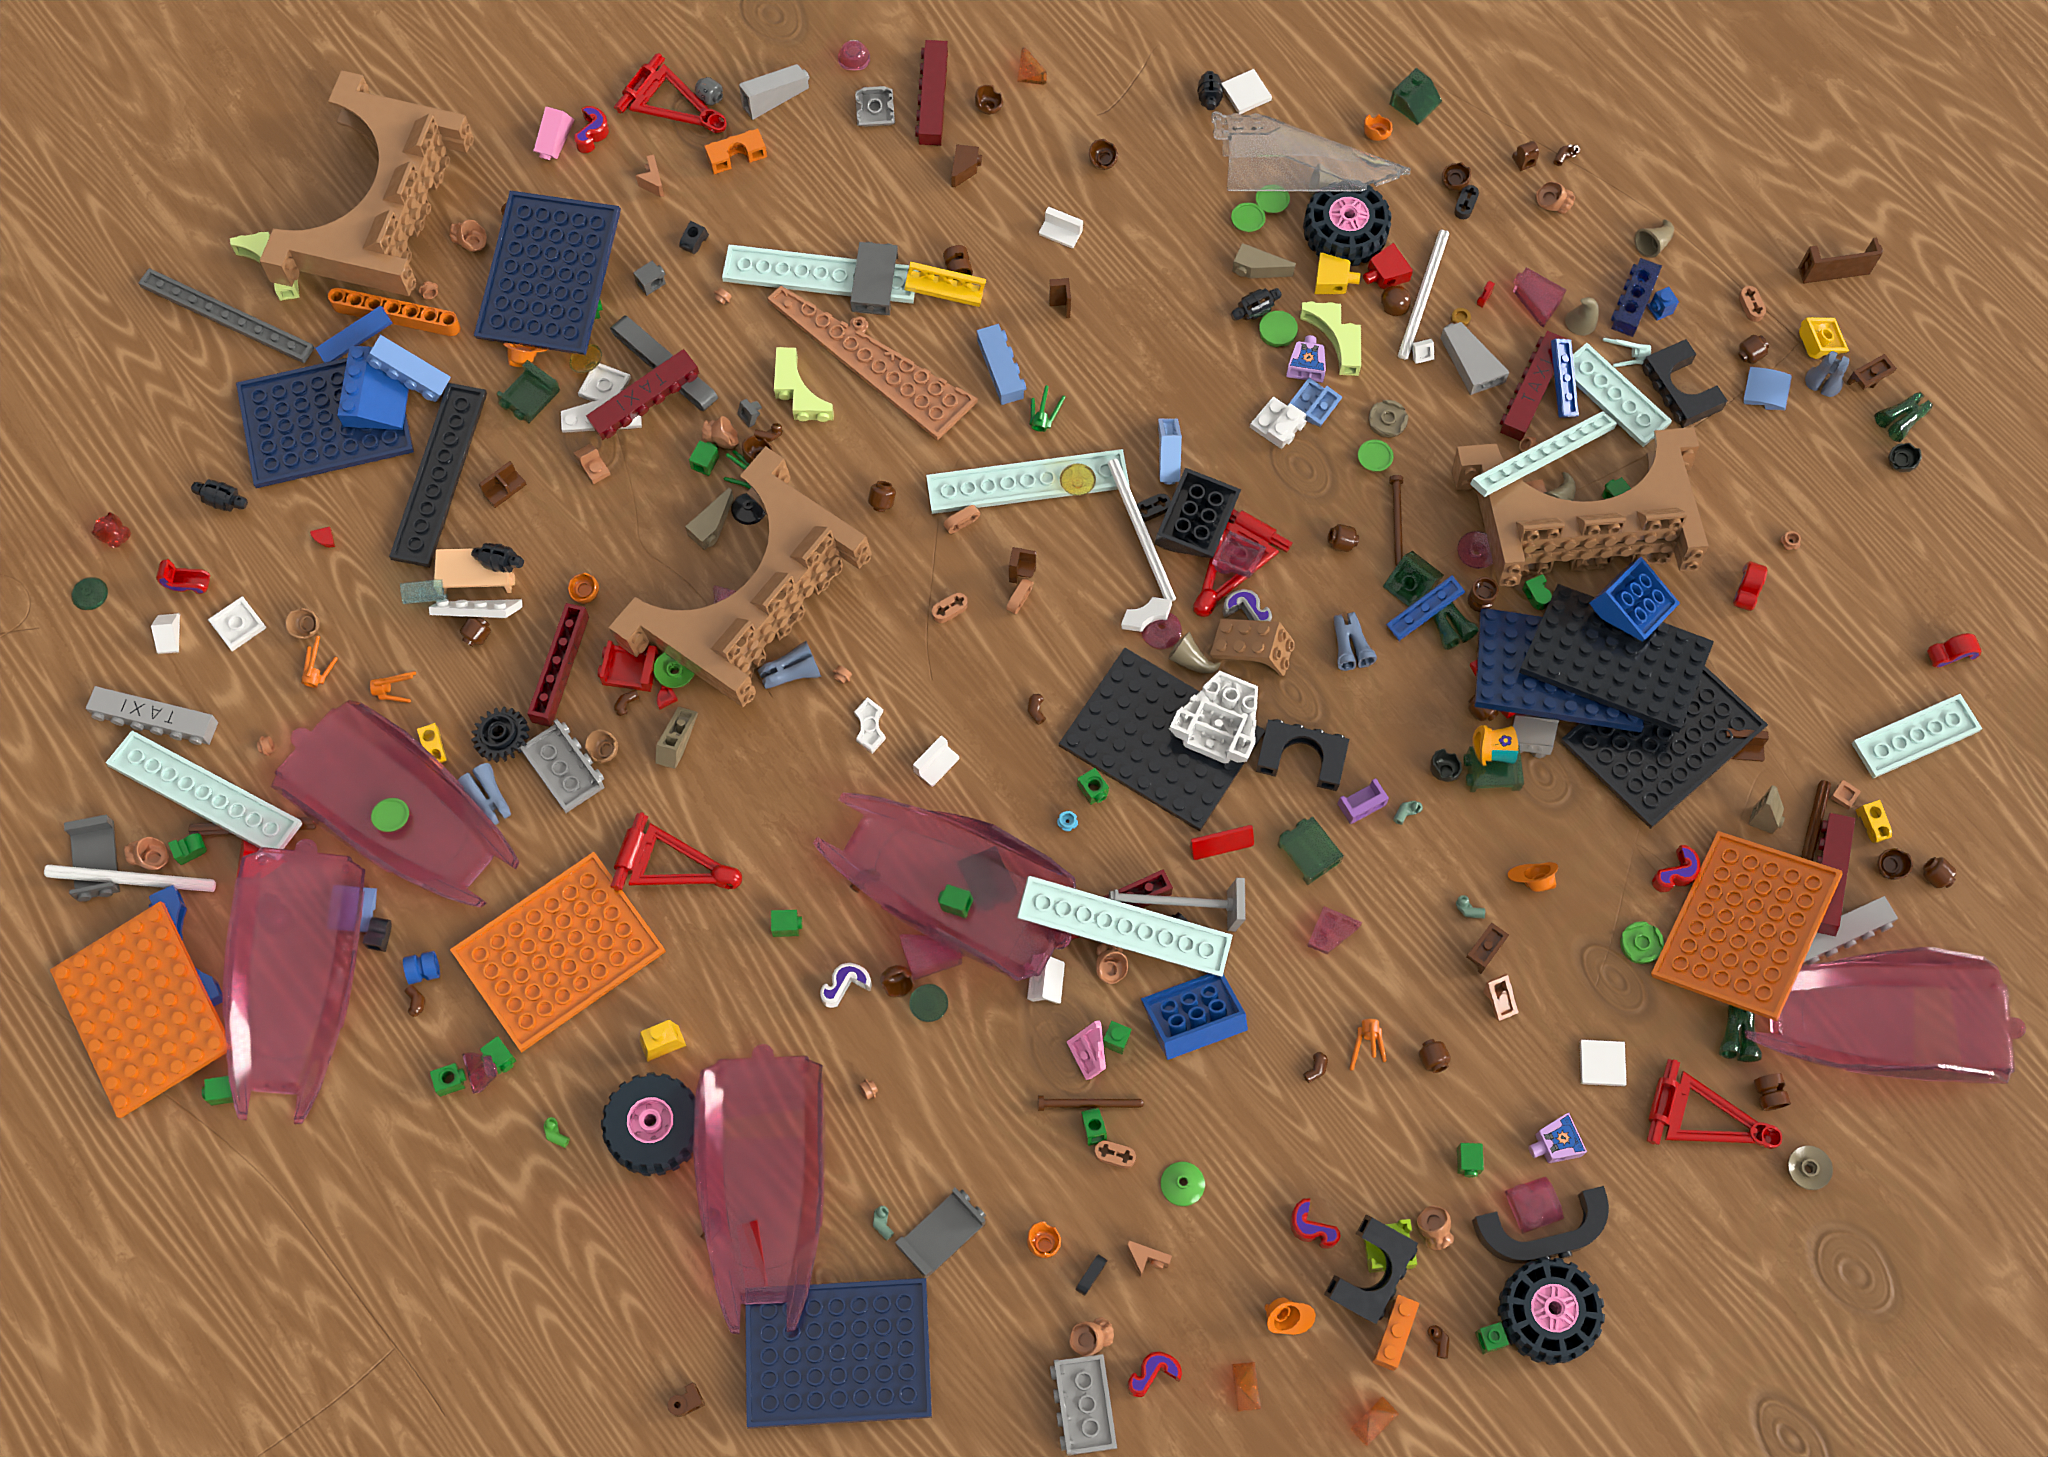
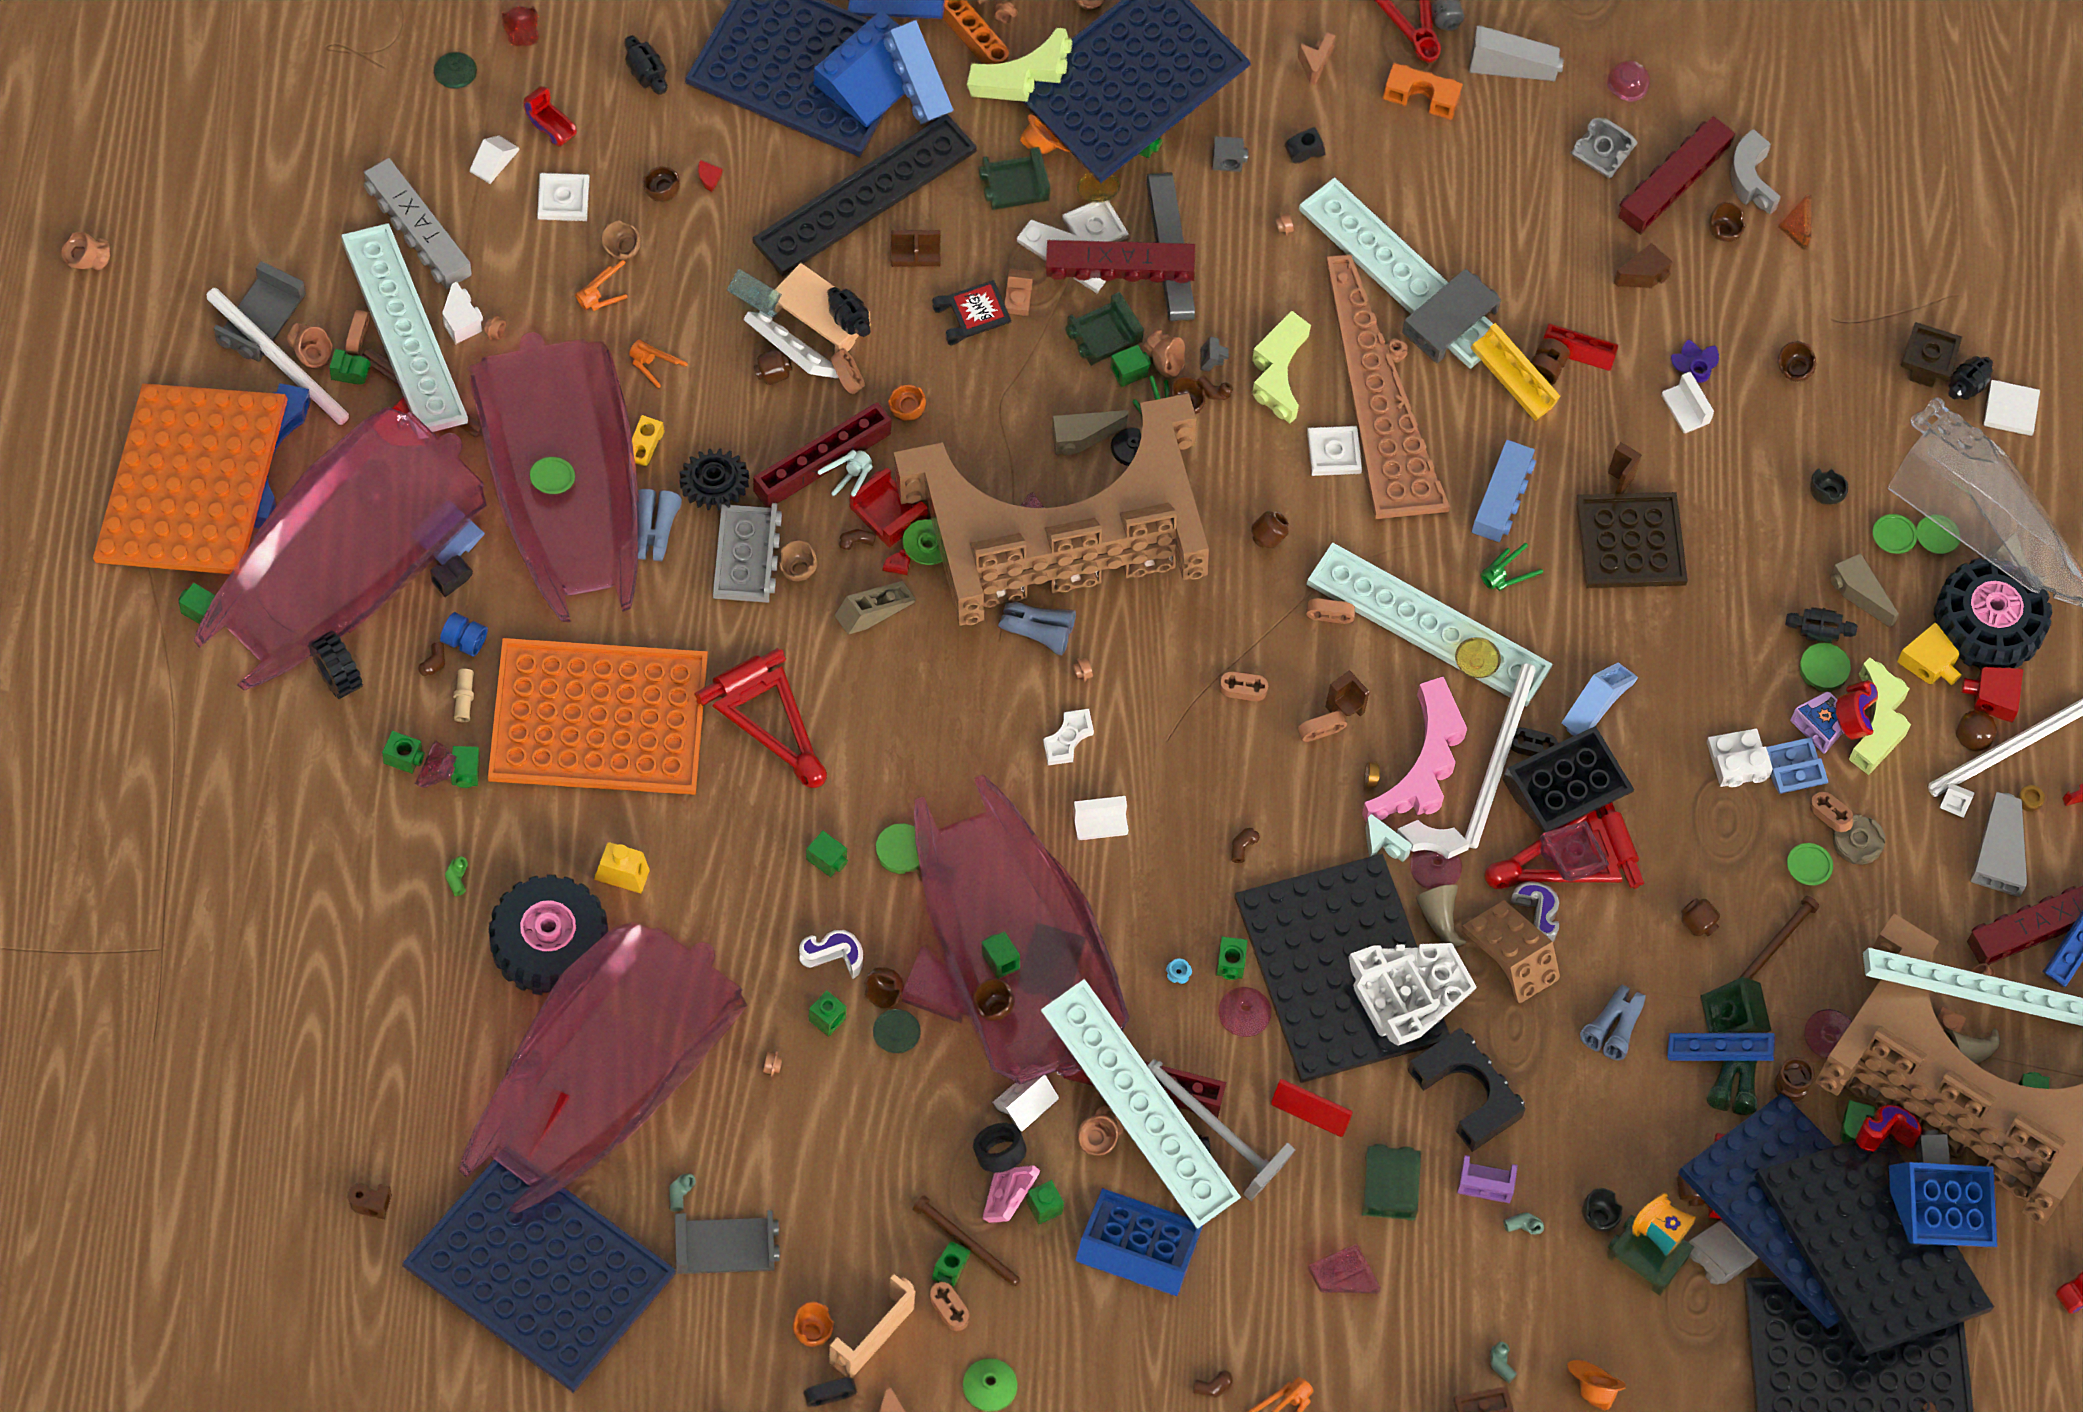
camera: 35 degrees right, 5 degrees down
(173, 819) = (357, 332): none -> nougat beam
(234, 755) = (459, 315): none -> white slope
(297, 566) = (661, 183): none -> reddish brown hair
(352, 1058) = (335, 664): none -> black bush
(455, 1008) = (463, 695): none -> tan pin
(474, 326) = (1016, 78): none -> yellowish green arch
(526, 597) = (847, 371): none -> nougat beam
(576, 495) = (975, 309): none -> flag
(585, 652) = (857, 464): none -> light aqua plant
(669, 446) = (1105, 330): none -> clear green panel
(826, 882) = (898, 849): none -> bright green tile
(875, 416) = (1334, 450): none -> white tile
(876, 1027) = (827, 1013): none -> green brick
(971, 238) = (1584, 347): none -> red slope
(972, 63) = (1743, 176): none -> light grey arch
(979, 934) = (993, 999): none -> reddish brown hair
(1039, 199) = (1694, 359): none -> dark purple plate
(1048, 1018) = (1002, 1160): none -> black tyre
(1075, 603) = (1371, 774): none -> pearl gold tile
(1086, 1246) = (850, 1361): none -> light nougat panel
(1092, 541) = (1419, 787): none -> bright pink arch
(1101, 337) = (1631, 540): none -> dark brown plate
(1114, 636) = (1380, 836): none -> light aqua slope
(1125, 822) = (1244, 1022): none -> clear pink dish
(1175, 93) = (1930, 354): none -> dark brown panel
(1187, 217) = (1828, 487): none -> pearl dark grey hair
(1322, 339) = (1851, 709): none -> red animal
(1360, 413) = (1830, 813): none -> nougat beam
(1561, 577) = (1885, 1121): none -> red animal
(1598, 575) = (1932, 1148): none -> dark grey brick

